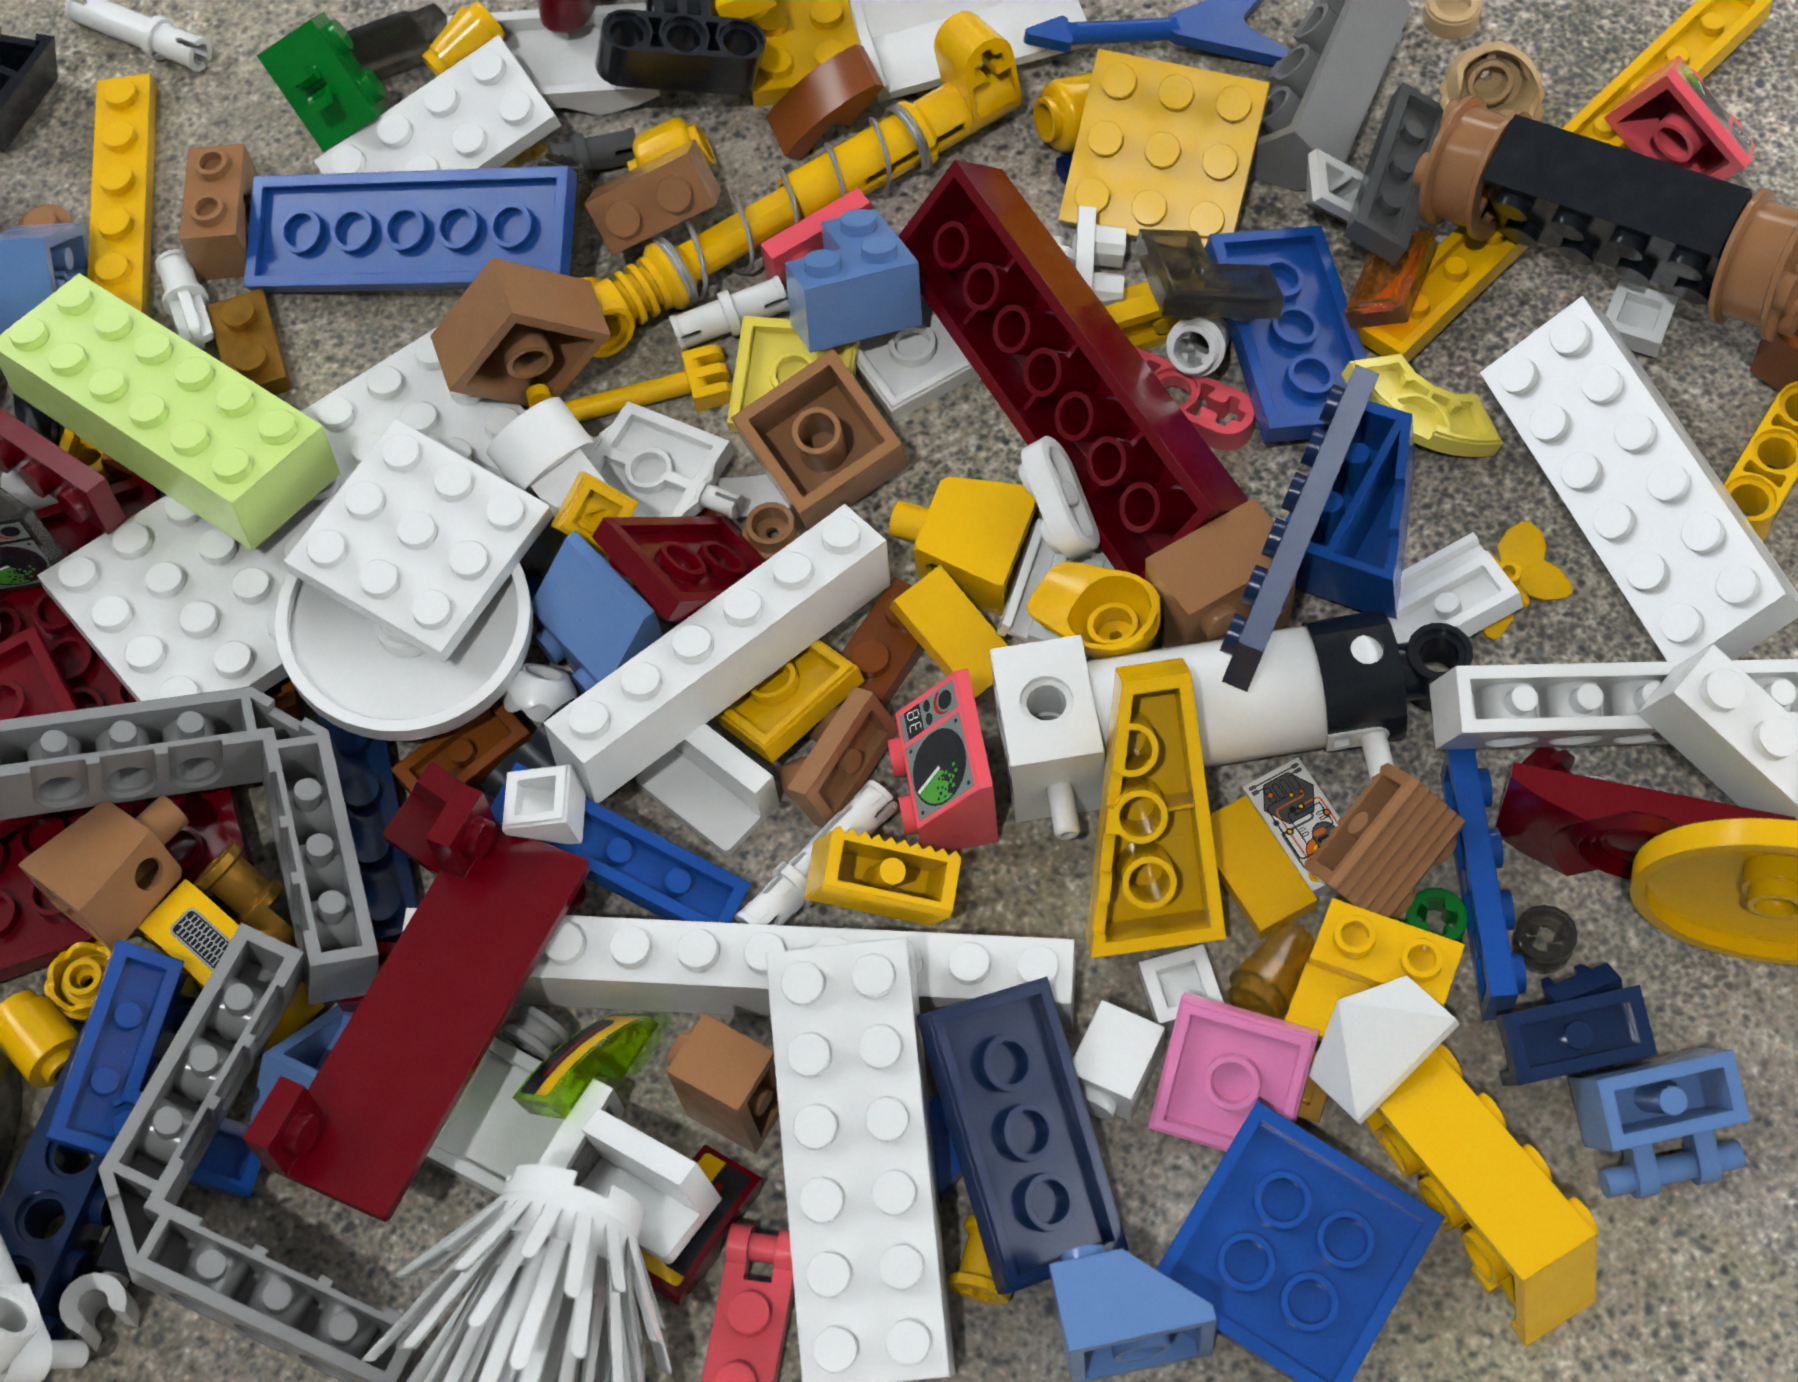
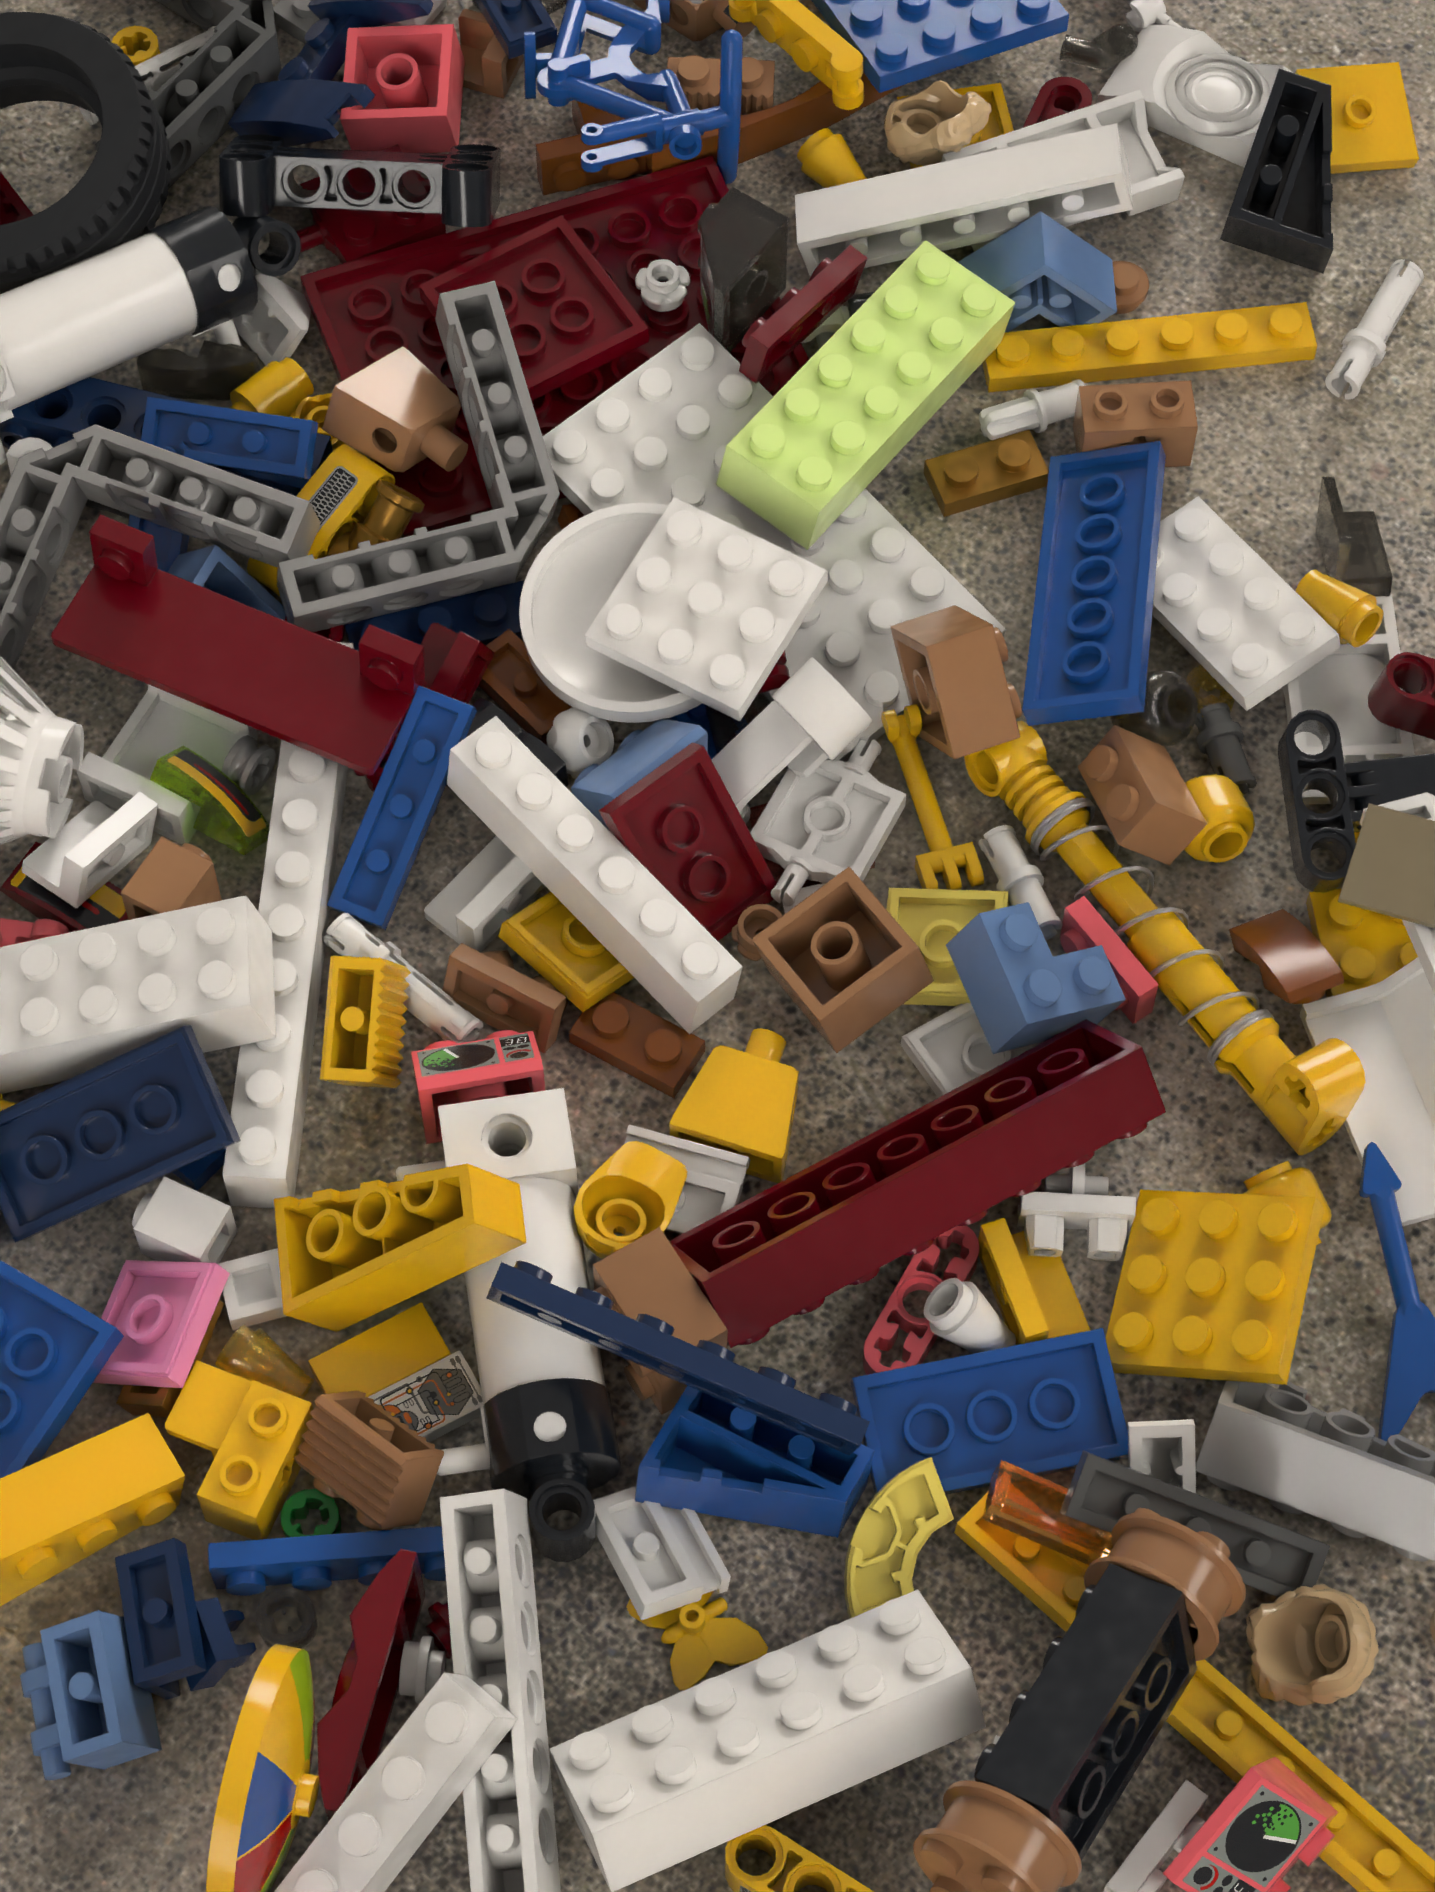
camera: 80 degrees right, 0 degrees up
(324, 80) = (1276, 485): green brick -> none
(545, 805) = (425, 731): white slope -> none
(588, 504) = (740, 752): yellow tile -> none
(949, 627) = (632, 1090): yellow tile -> none
(1066, 515) = (756, 1166): white plate -> none
(1193, 287) = (1005, 1294): clear smoke plate -> none
(1378, 1043) = (158, 1431): white slope -> none

